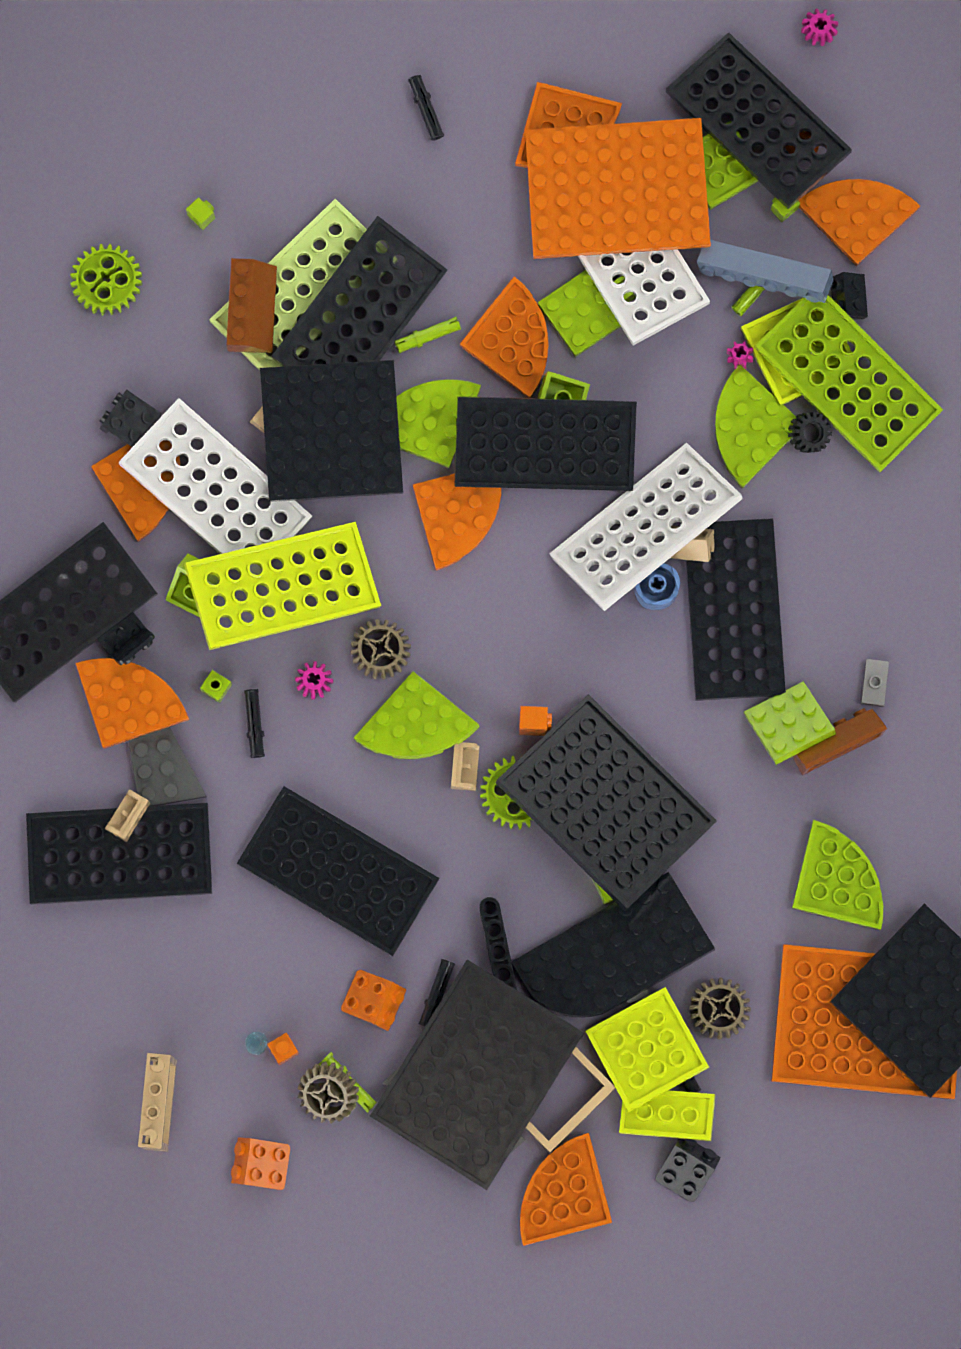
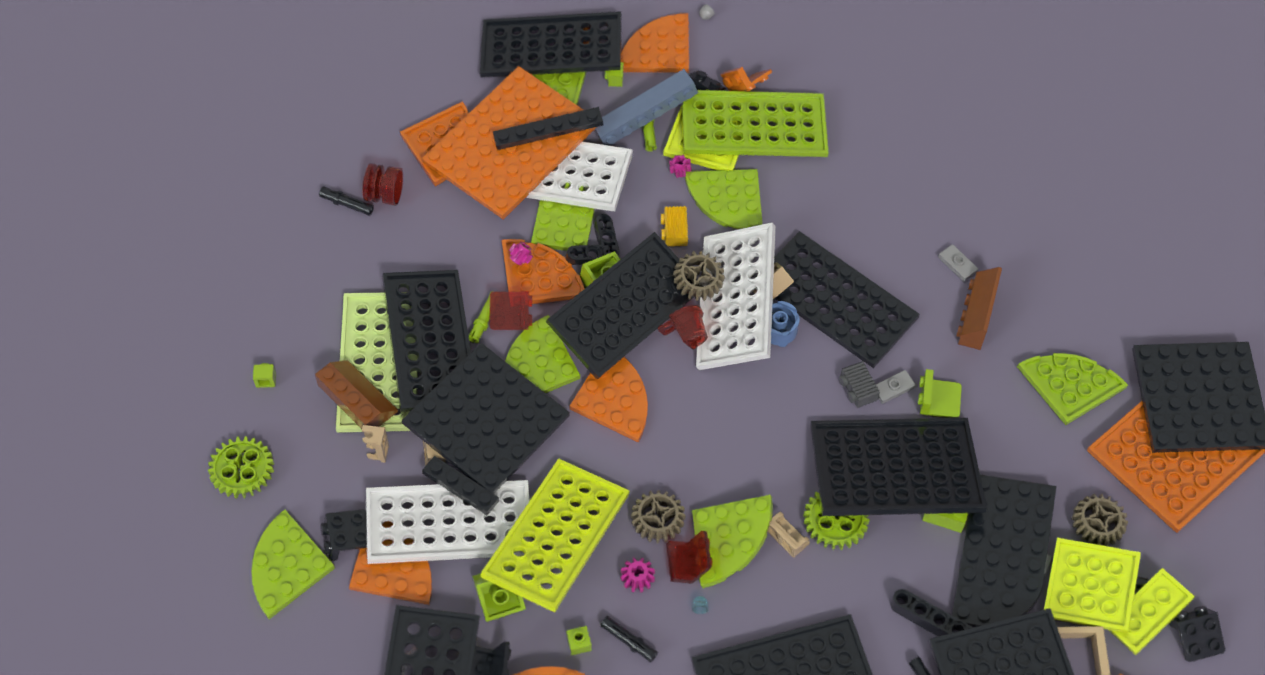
camera: 45 degrees left, 20 degrees down
(63, 398) = (285, 564): none -> lime plate
(227, 367) = (376, 439): none -> tan hinge
(253, 469) = (460, 485): none -> black plate
(336, 752) = (700, 605): none -> clear light blue hinge
(363, 707) = (689, 559): none -> clear red bracket
(451, 352) = (510, 310): none -> clear red bracket
(467, 124) = (383, 183): none -> clear red wheel
(511, 308) = (520, 253): none -> dark pink gear
(534, 721) = (799, 463): orange brick -> none
(575, 514) = (688, 324): none -> clear red container
(585, 368) = (601, 249): none -> black beam
(625, 461) = (711, 283): none -> dark tan gear
(655, 210) = (548, 128): none -> black plate
(662, 704) = (859, 384): none -> dark grey brick
(672, 408) = (675, 226): none -> yellow brick
(691, 733) = (895, 386): none -> light grey plate
(715, 780) = (939, 397): none -> lime bracket
(789, 723) = (942, 323): lime plate -> none
(798, 432) = (758, 169): black tyre -> none
(888, 332) = (739, 81): none -> orange bracket
(937, 221) = (706, 12): none -> light grey hinge

